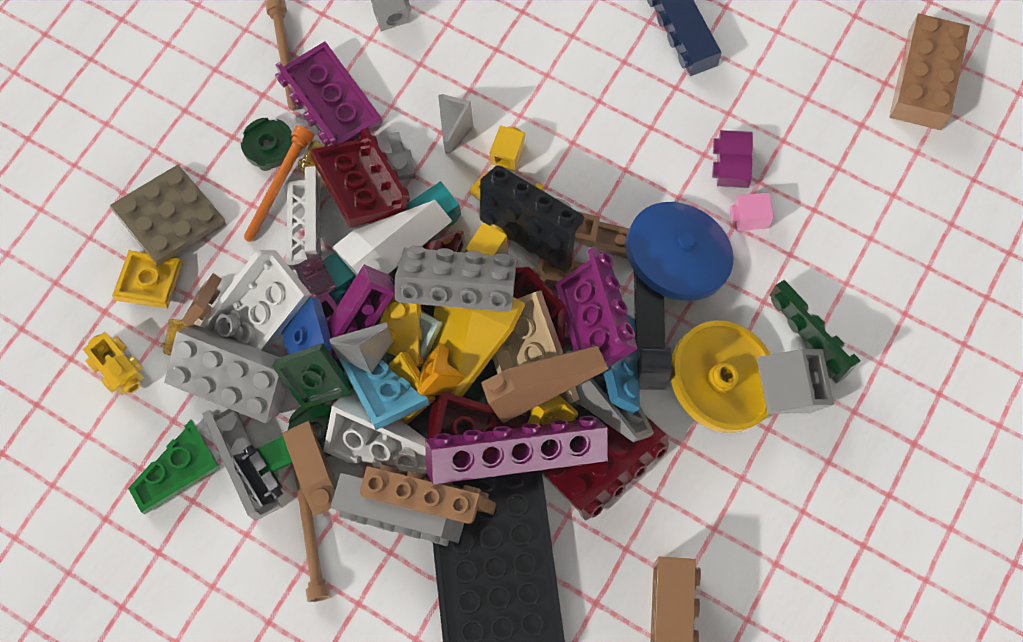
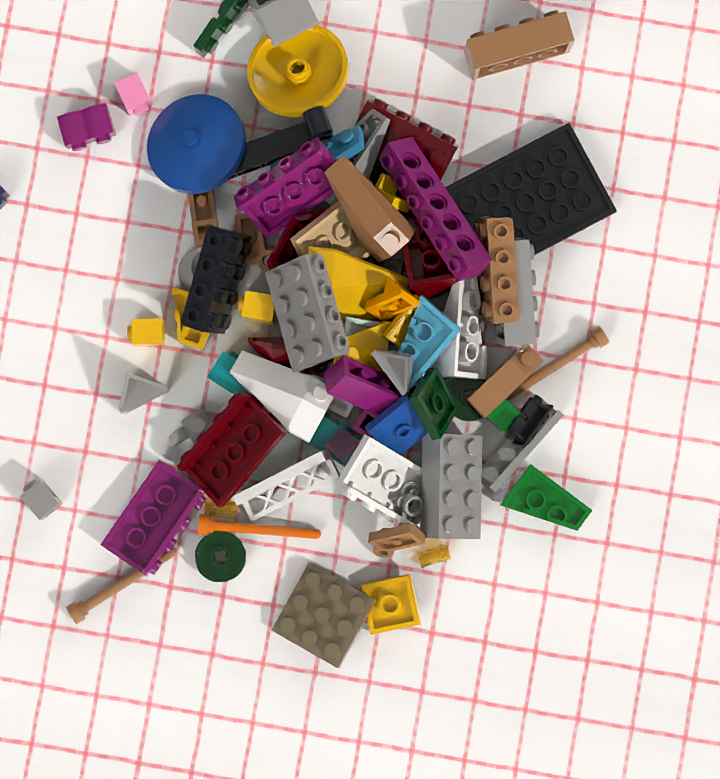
camera: 115 degrees left, 15 degrees up
(120, 371) = (481, 588): yellow brick -> none

